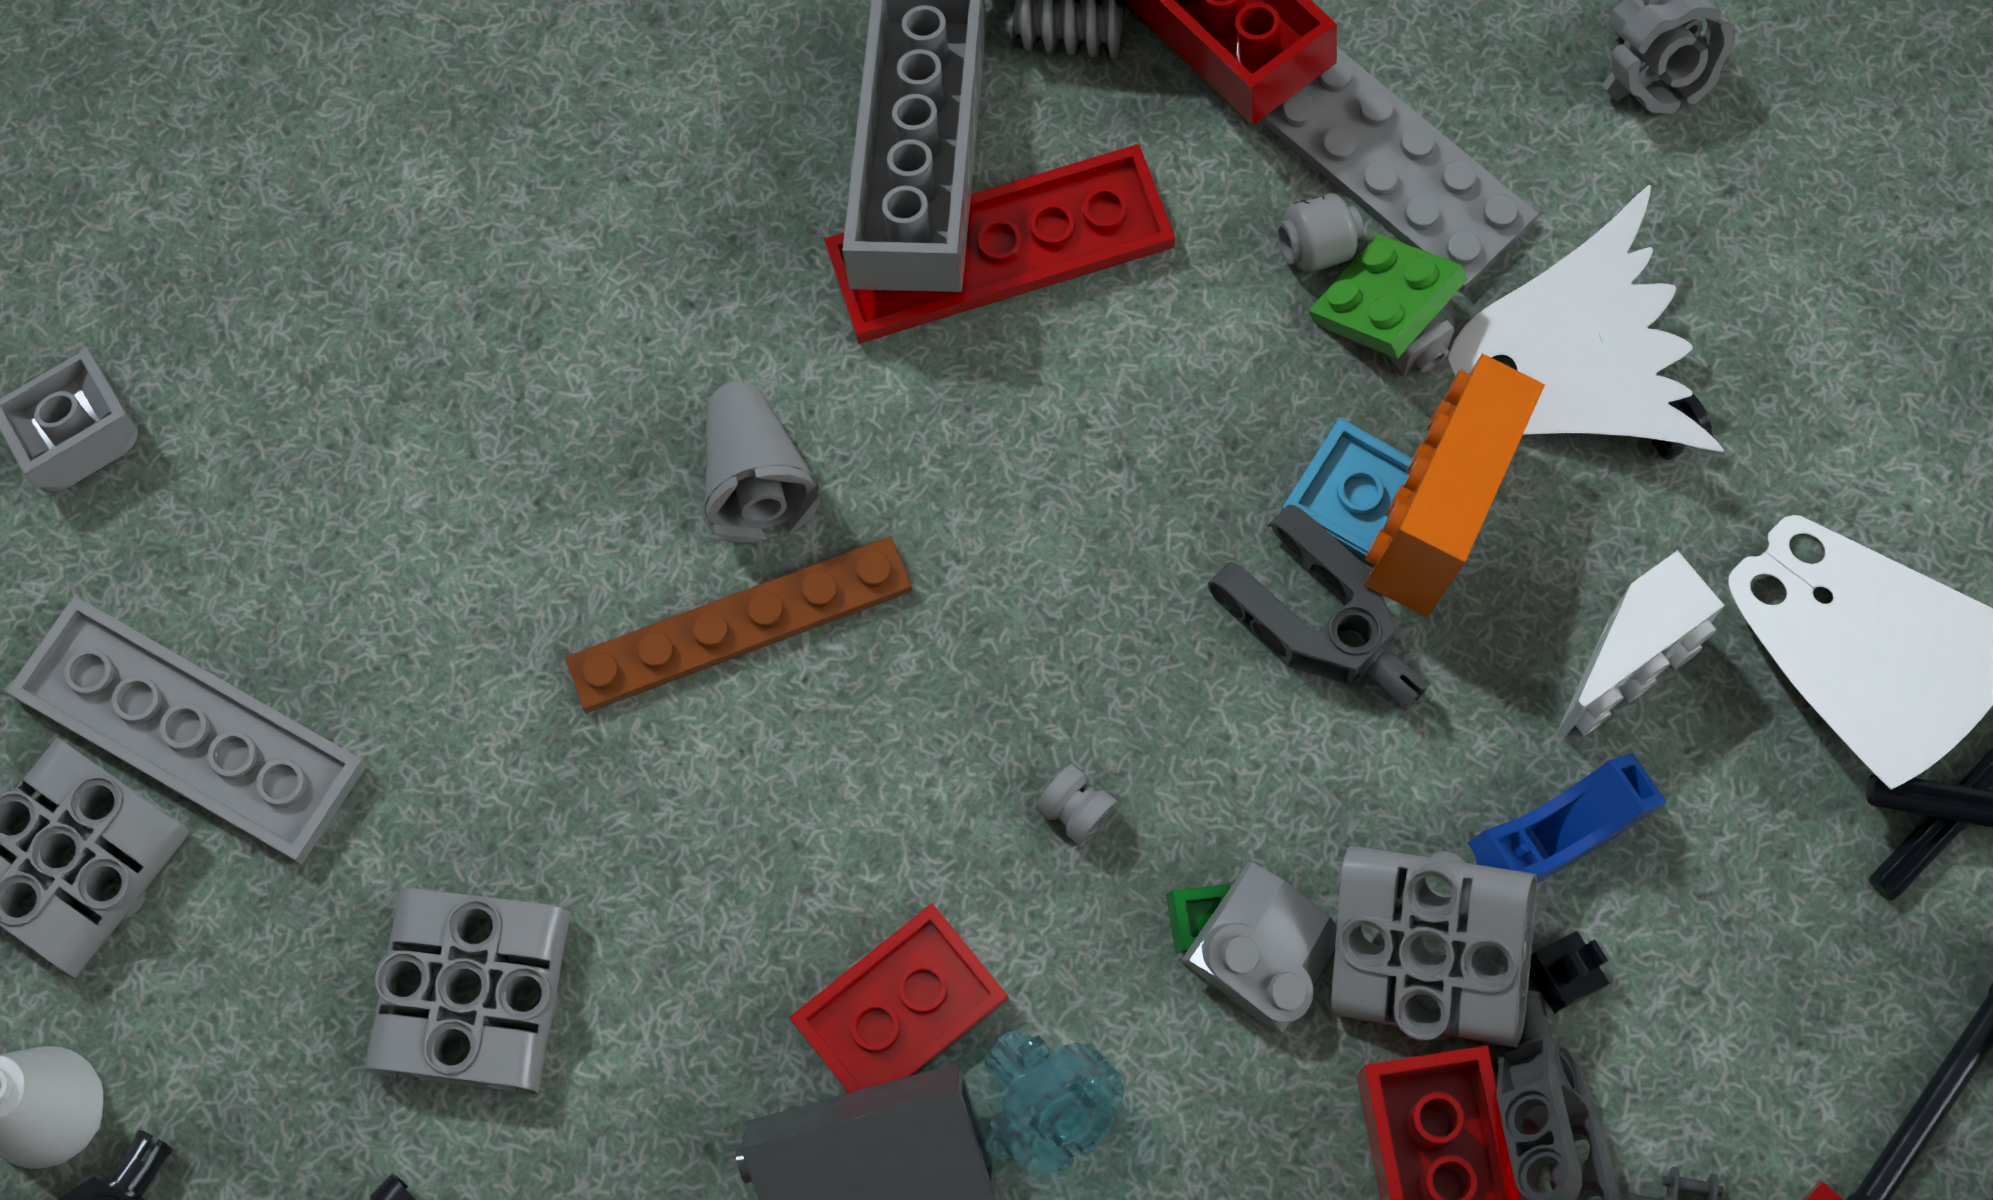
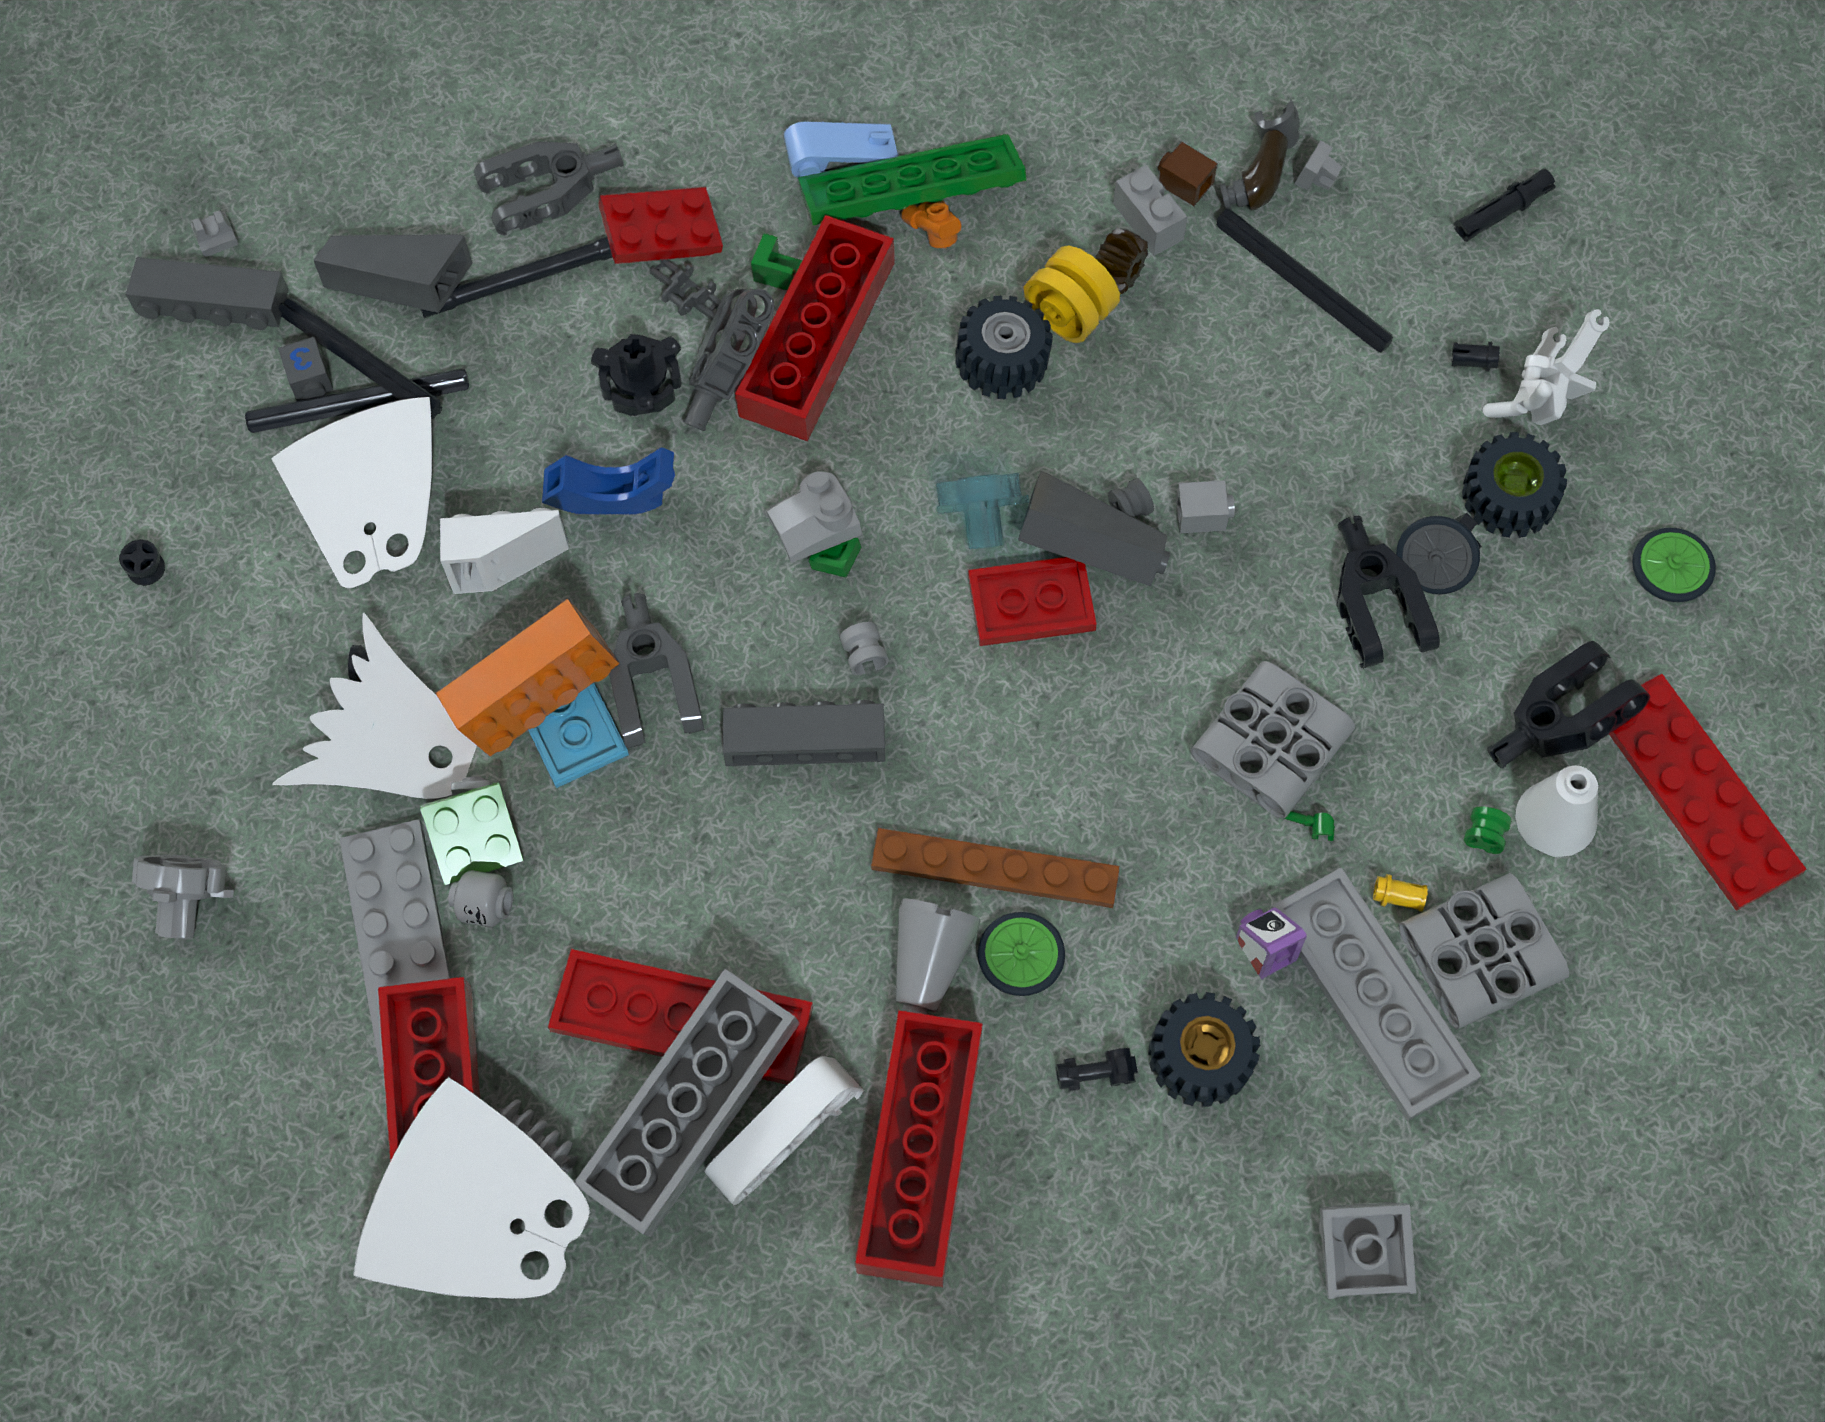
camera: 150 degrees left, 5 degrees down
(123, 1024) = (1488, 829): none -> green wheel
(208, 877) = (1399, 893): none -> yellow pin
(337, 703) = (1270, 940): none -> slope
(349, 910) = (1320, 822): none -> green hand
(359, 533) = (1203, 1049): none -> black wheel
(458, 470) = (1118, 1067): none -> black bar
(633, 245) = (919, 1149): none -> red brick
(646, 536) = (1021, 953): none -> bright green wheel
(794, 189) = (781, 1127): none -> white beam
(1076, 646) = (803, 733): none -> dark grey brick
(1383, 980) = (725, 454): light grey connector -> none
(1568, 971) = (662, 426): black tile -> none
(1691, 1022) = (639, 369): none -> black piece

